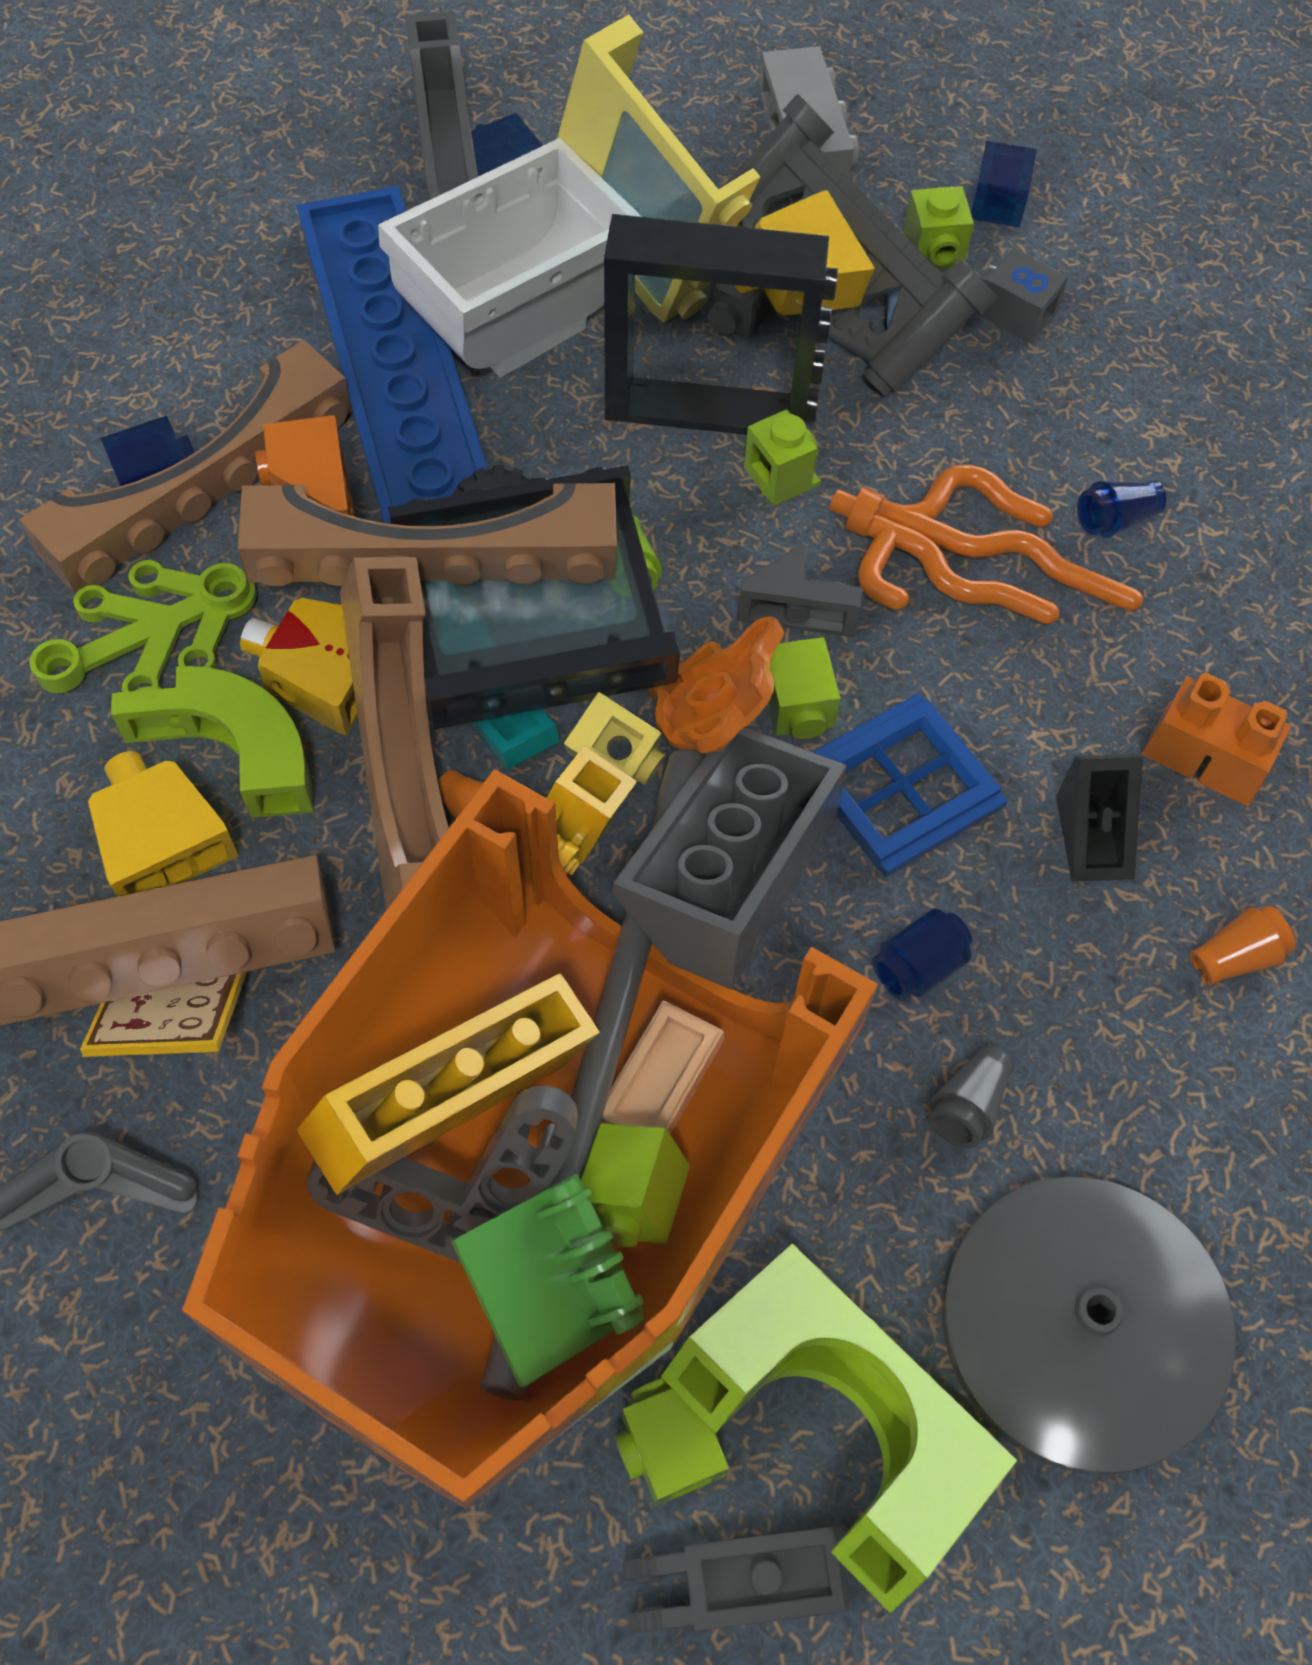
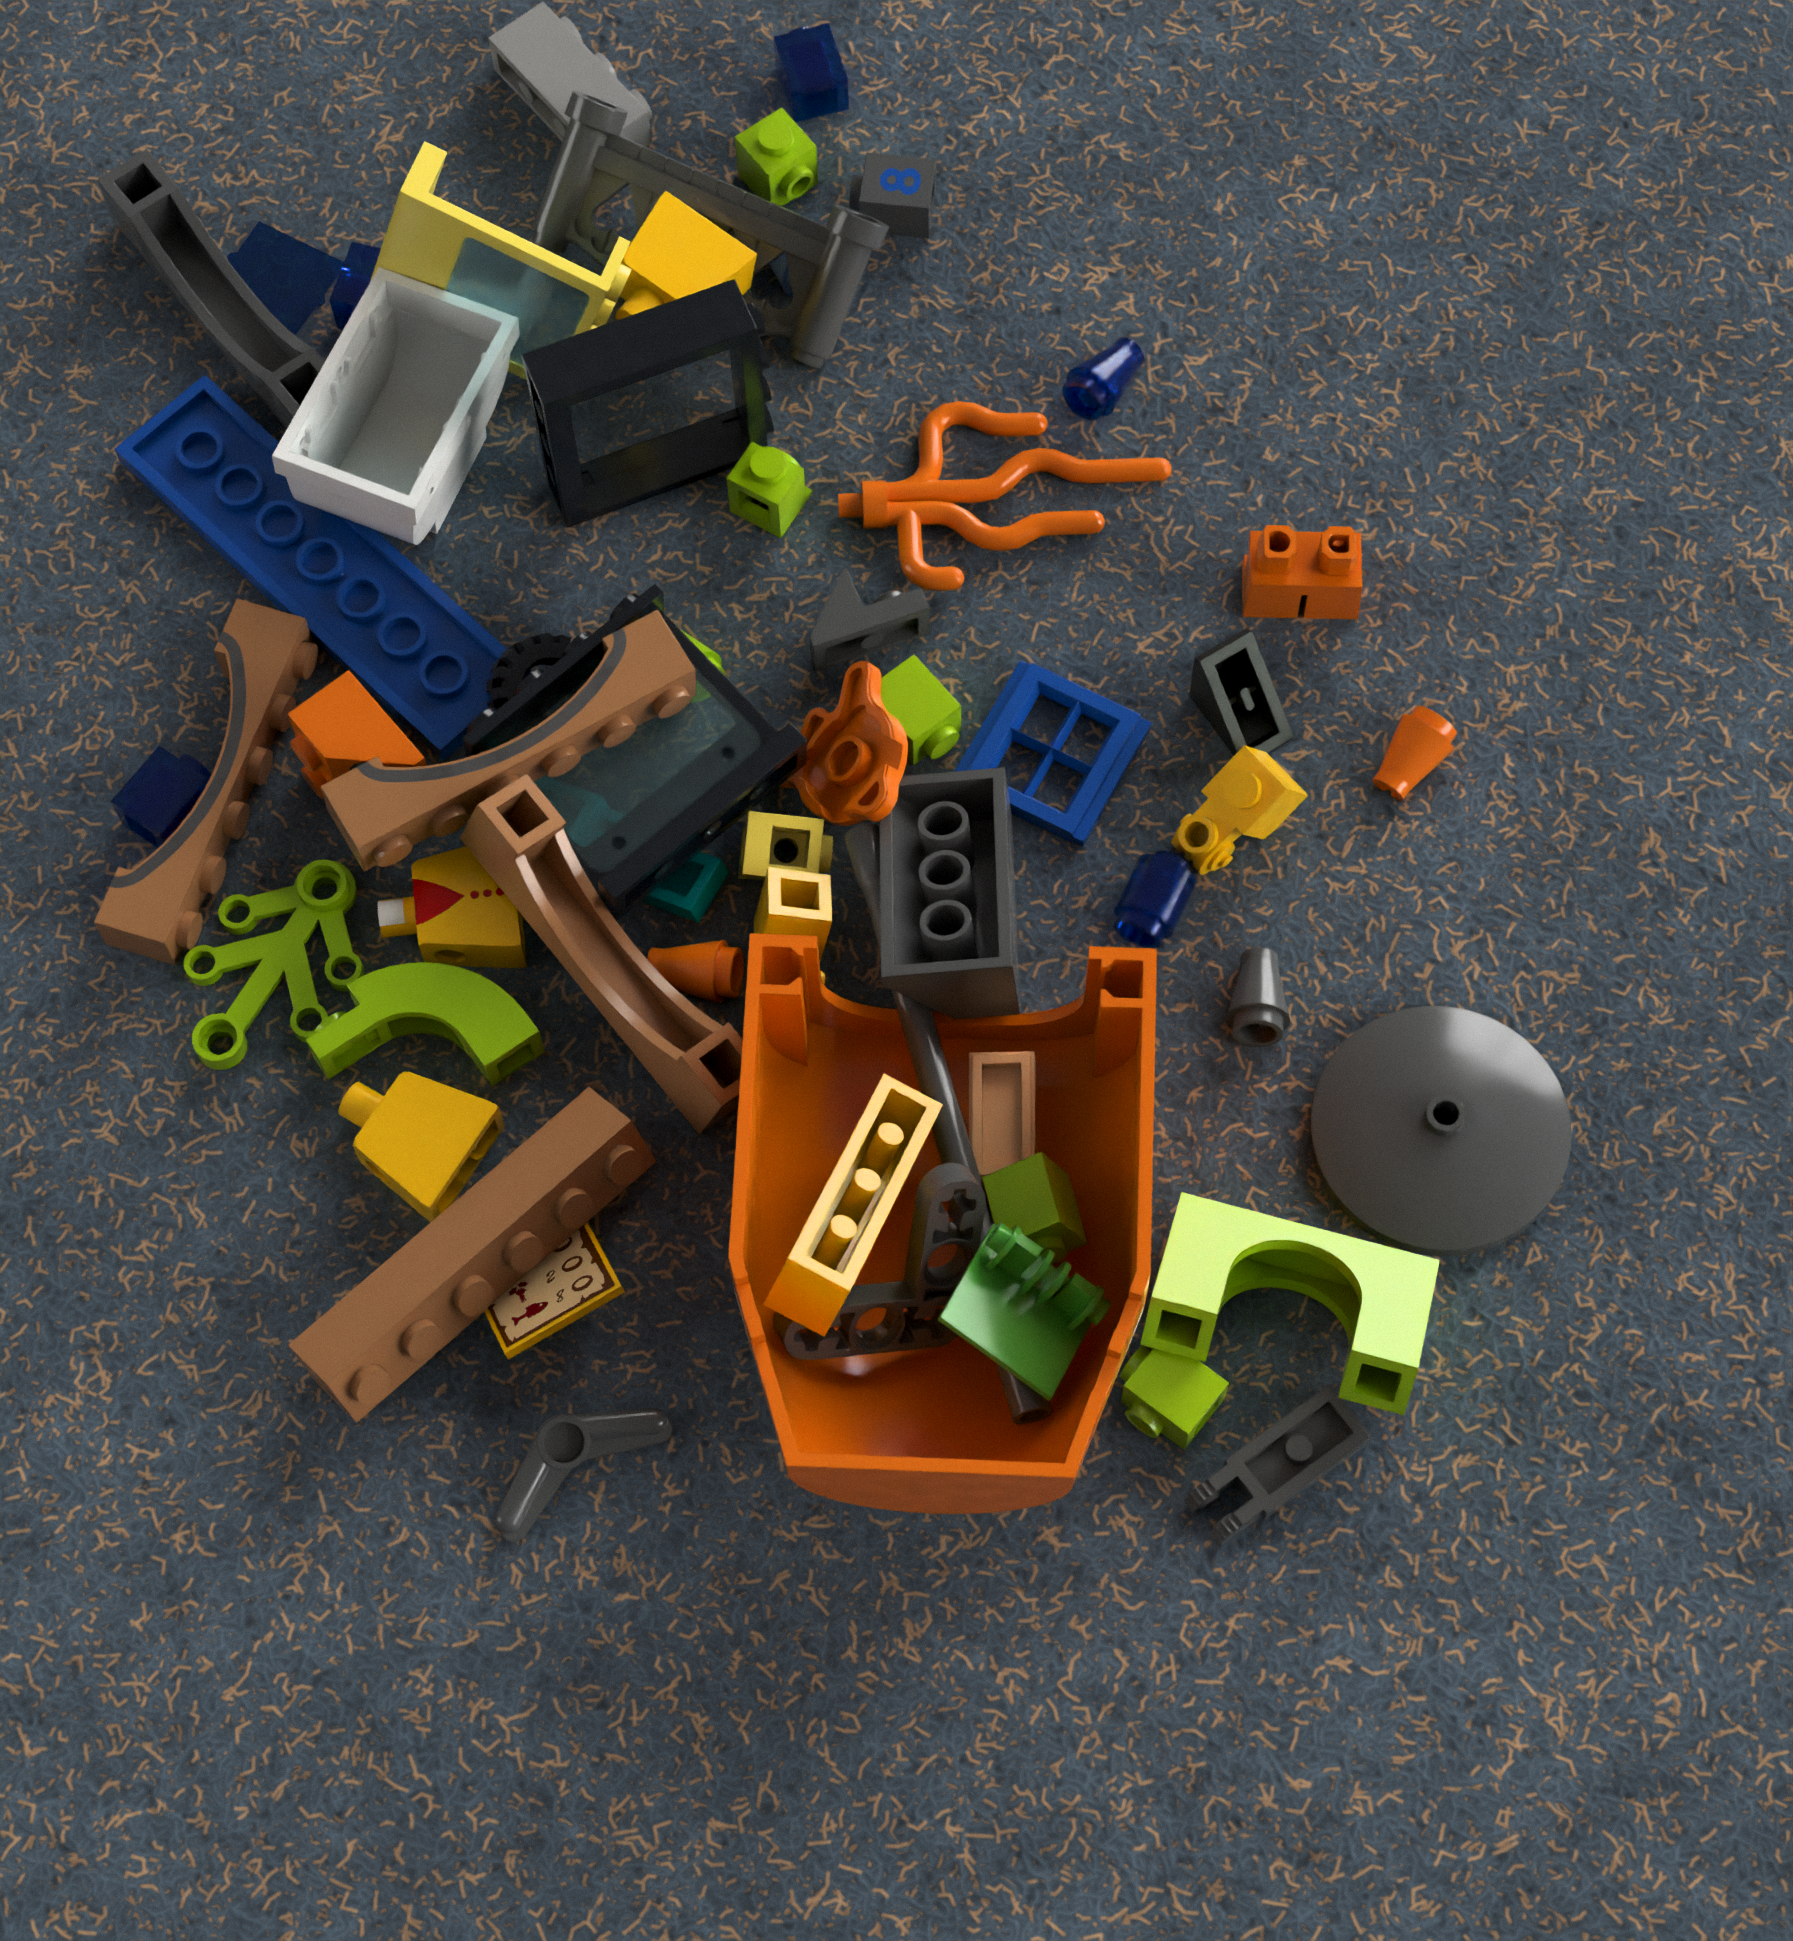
camera: 25 degrees left, 5 degrees up
(1056, 903) = (1243, 798): none -> yellow brick

